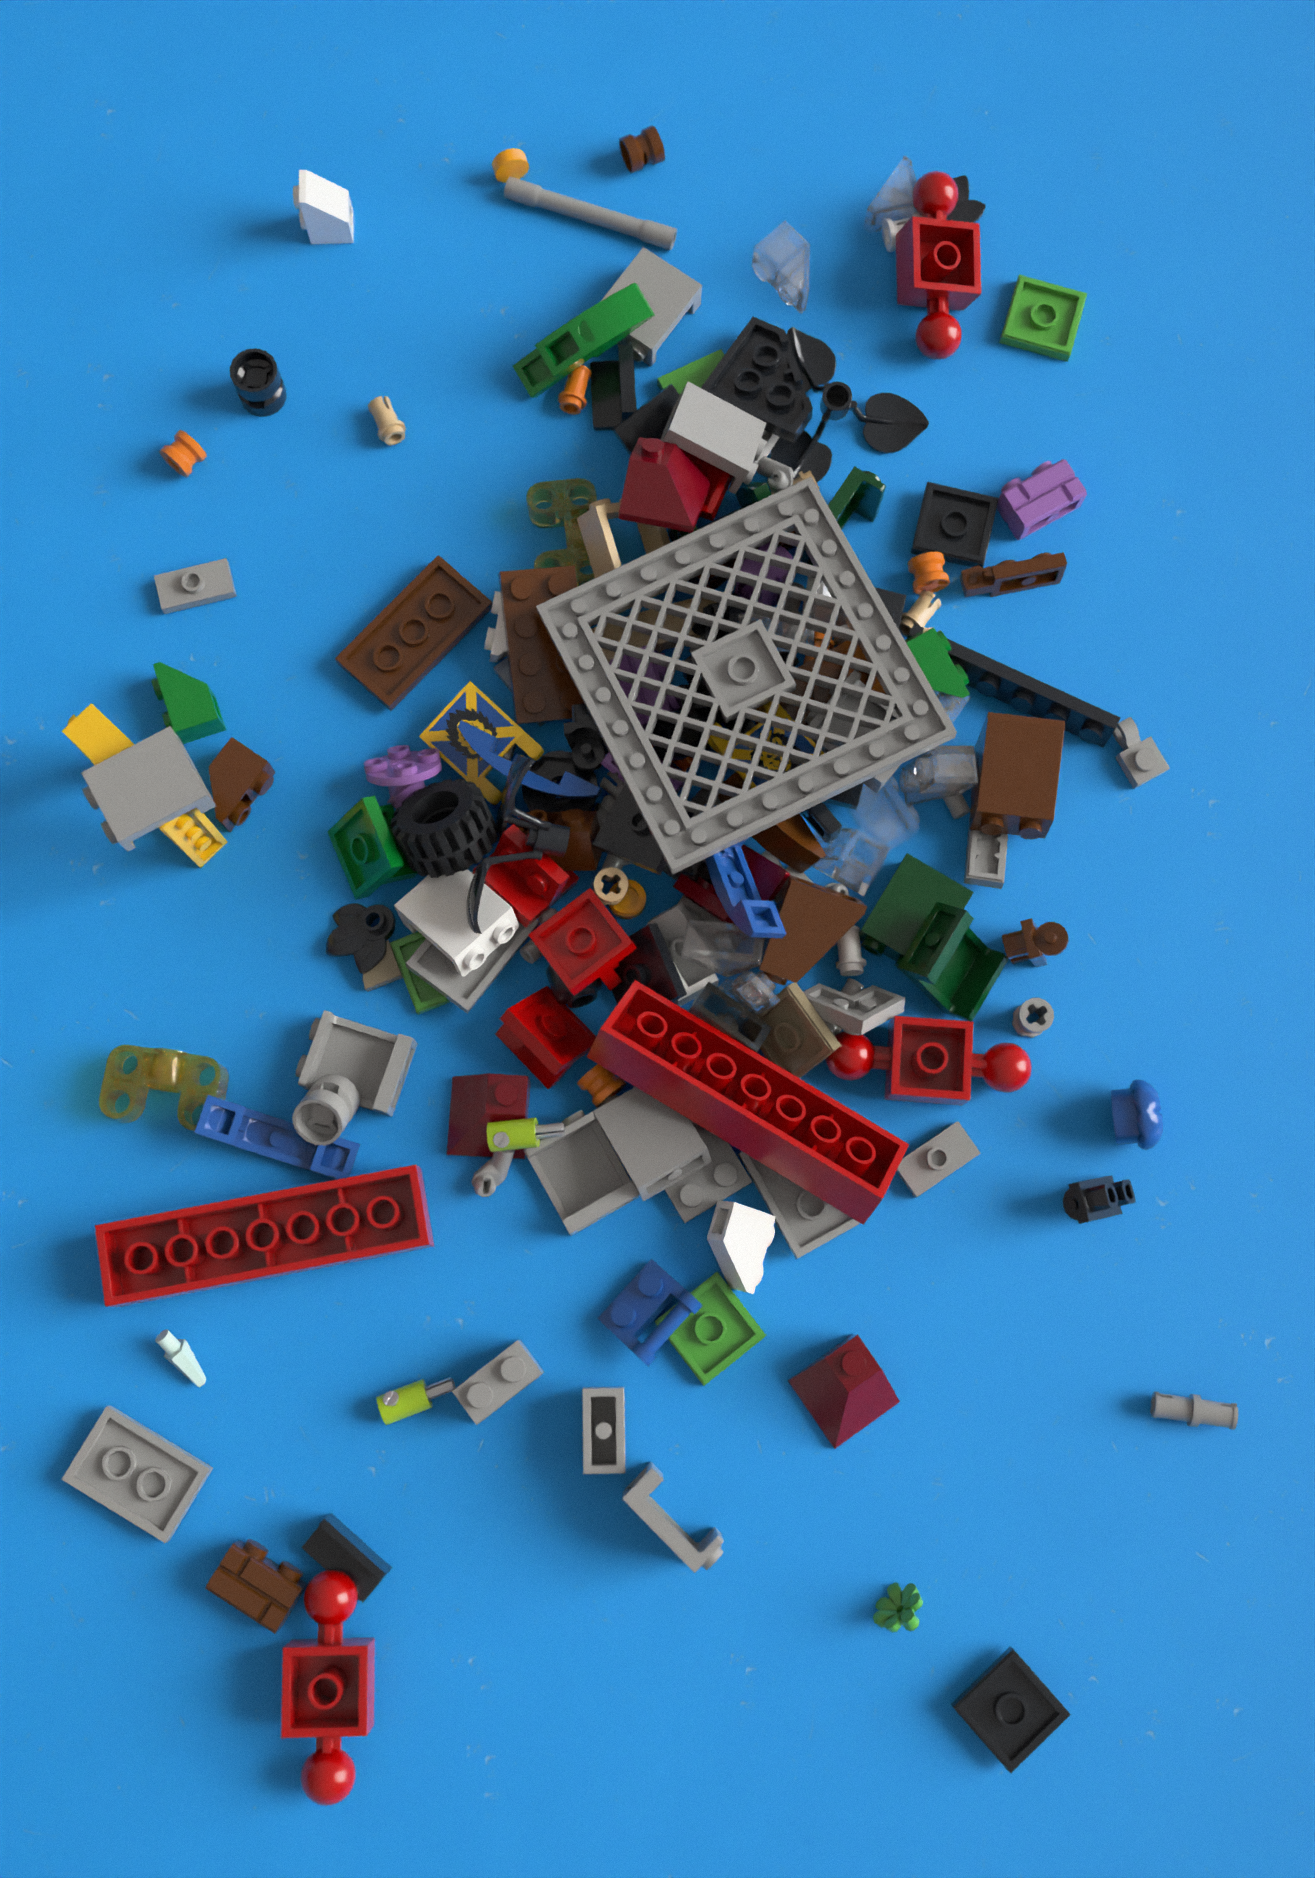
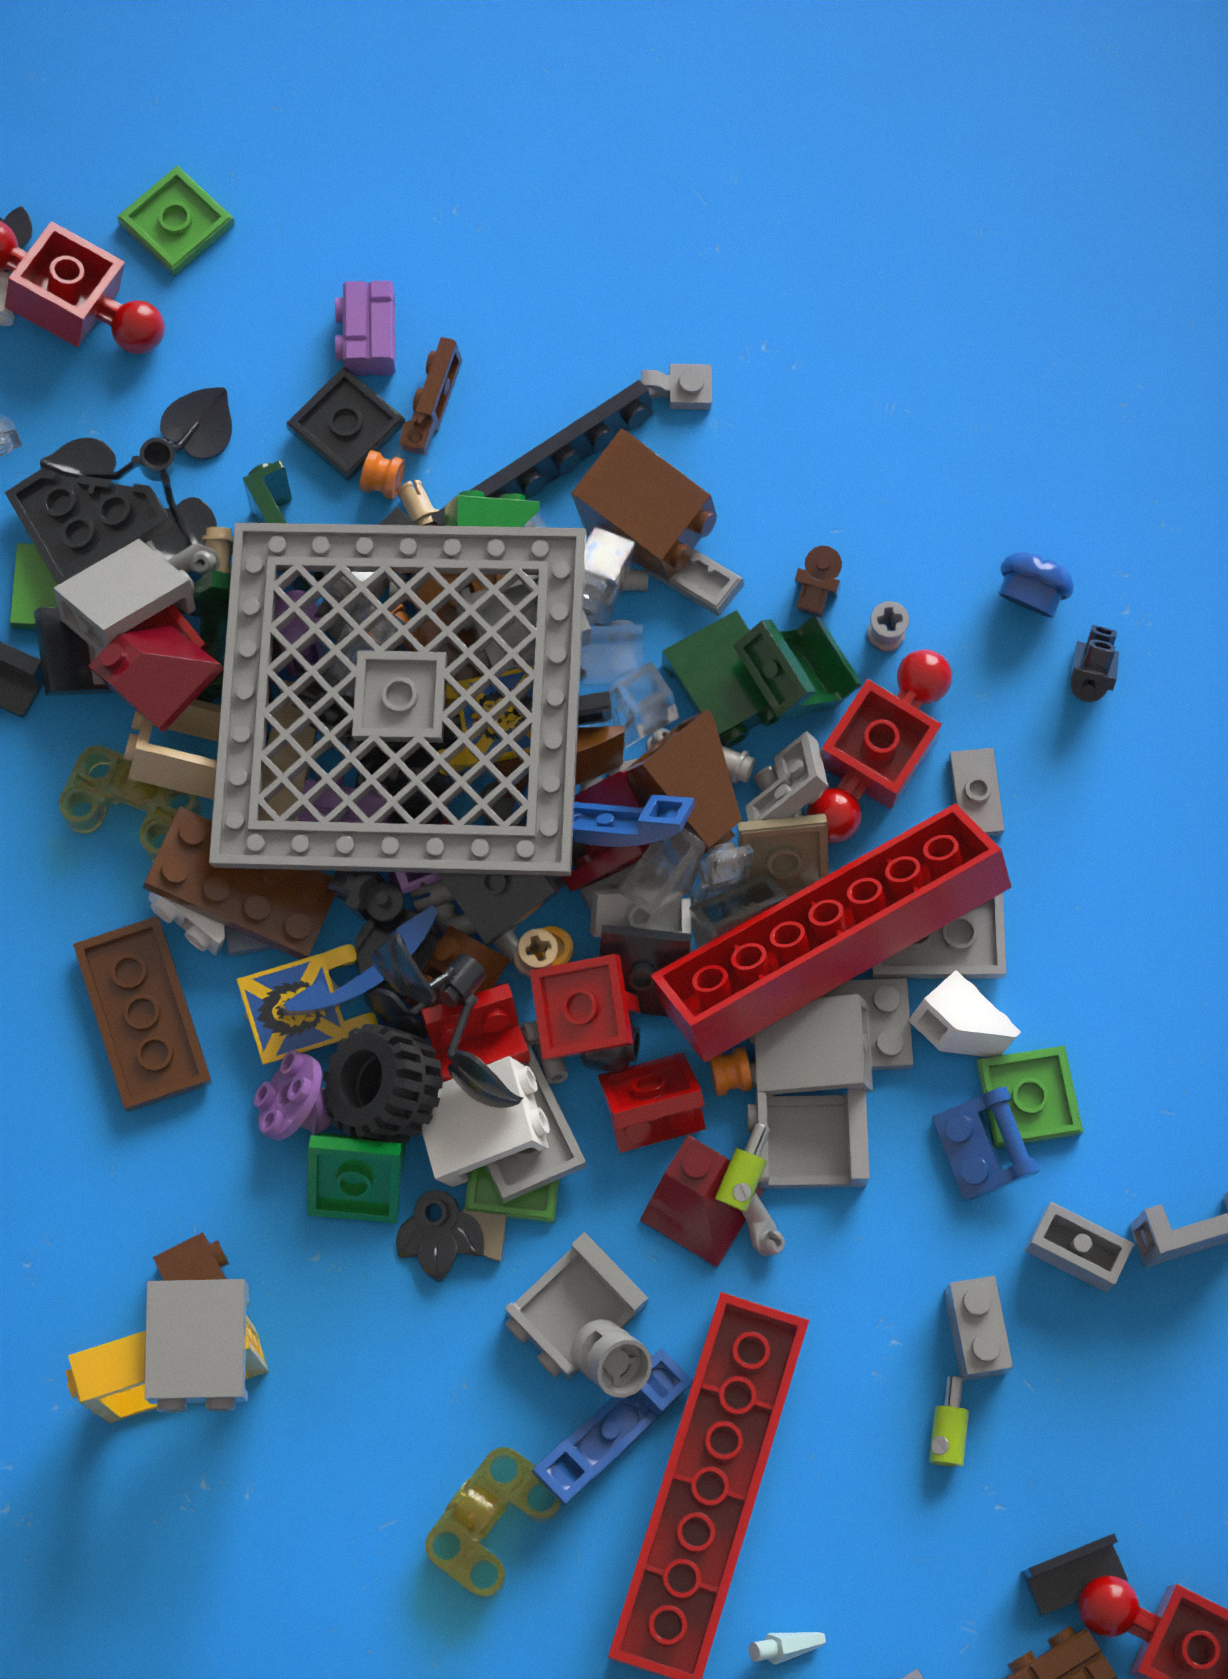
camera: 60 degrees left, 5 degrees down
(189, 704) = (81, 1287): green slope -> none
(844, 1390) = (1153, 999): dark red slope -> none

